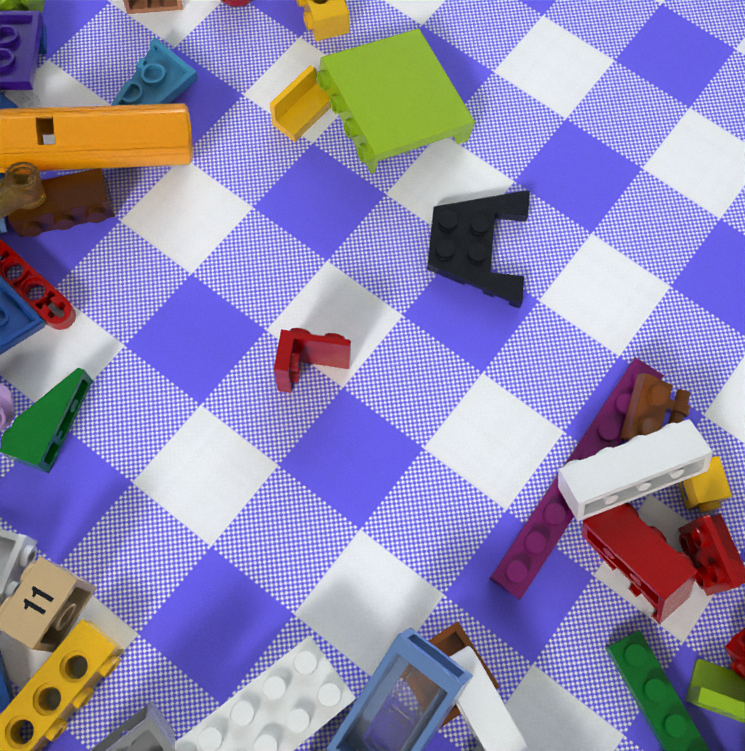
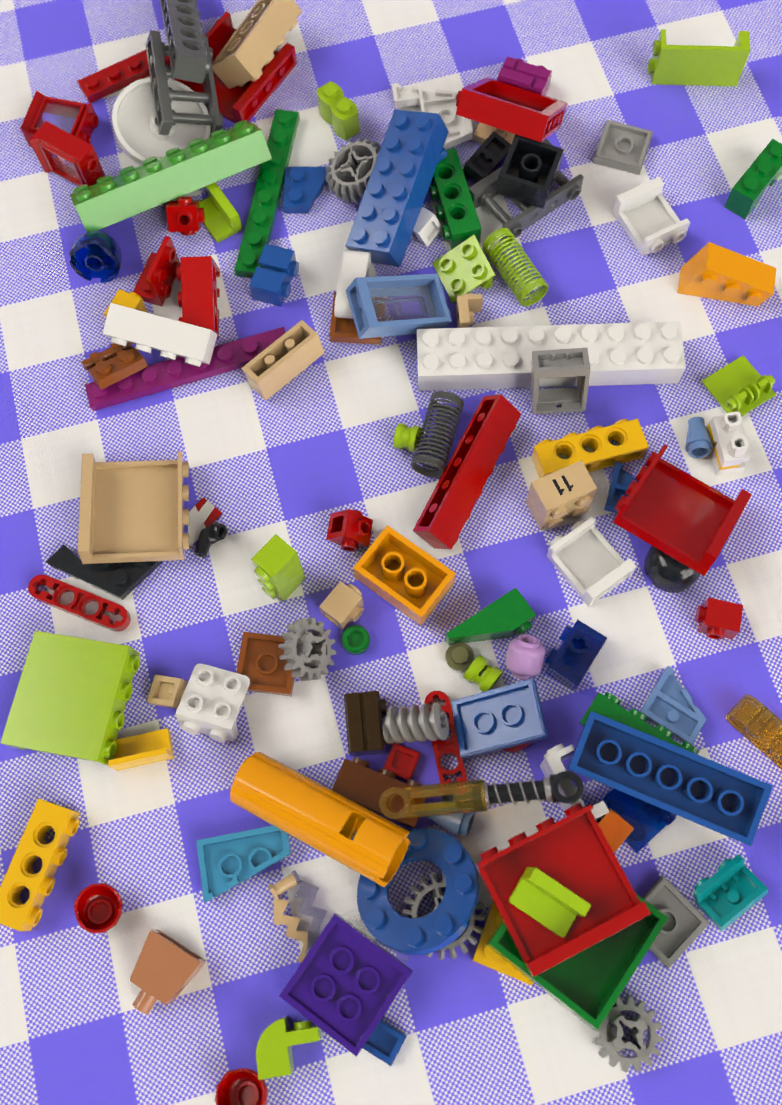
camera: 135 degrees left, 0 degrees up
(26, 365) = (488, 678): none -> lime wheel
(58, 268) = (415, 724): none -> light grey piece
(61, 245) = (402, 761): none -> red tile
(61, 366) = (459, 656): none -> olive plate
(66, 88) = (307, 892): none -> piece
(114, 248) = (365, 723): none -> dark brown brick
(167, 401) = (404, 575): none -> light orange brick
(177, 568) = (467, 472): none -> red brick
(181, 319) = (355, 640): none -> green tile
(213, 268) = (307, 649): none -> light grey gear
(213, 336) = (343, 605): none -> tan brick
(246, 578) = (438, 433): none -> dark grey piece
(247, 241) = (262, 664): none -> dark orange plate
(260, 410) = (349, 529): none -> red brick
(268, 174) = (212, 702): none -> white bracket
(275, 560) = (406, 437): none -> lime wheel
(290, 300) = (278, 568): none -> lime brick
(302, 346) = (309, 541): red bracket -> none
(313, 160) = (166, 691): none -> tan bracket
(401, 316) = (208, 537): none -> black arm
(426, 331) = (200, 517): none -> white sticker
(464, 176) = (78, 605): none -> red beam
(481, 548) = (283, 360): none -> tan brick
(492, 282) = (133, 511): none -> tan panel
(588, 663) = (273, 281): none -> blue piece

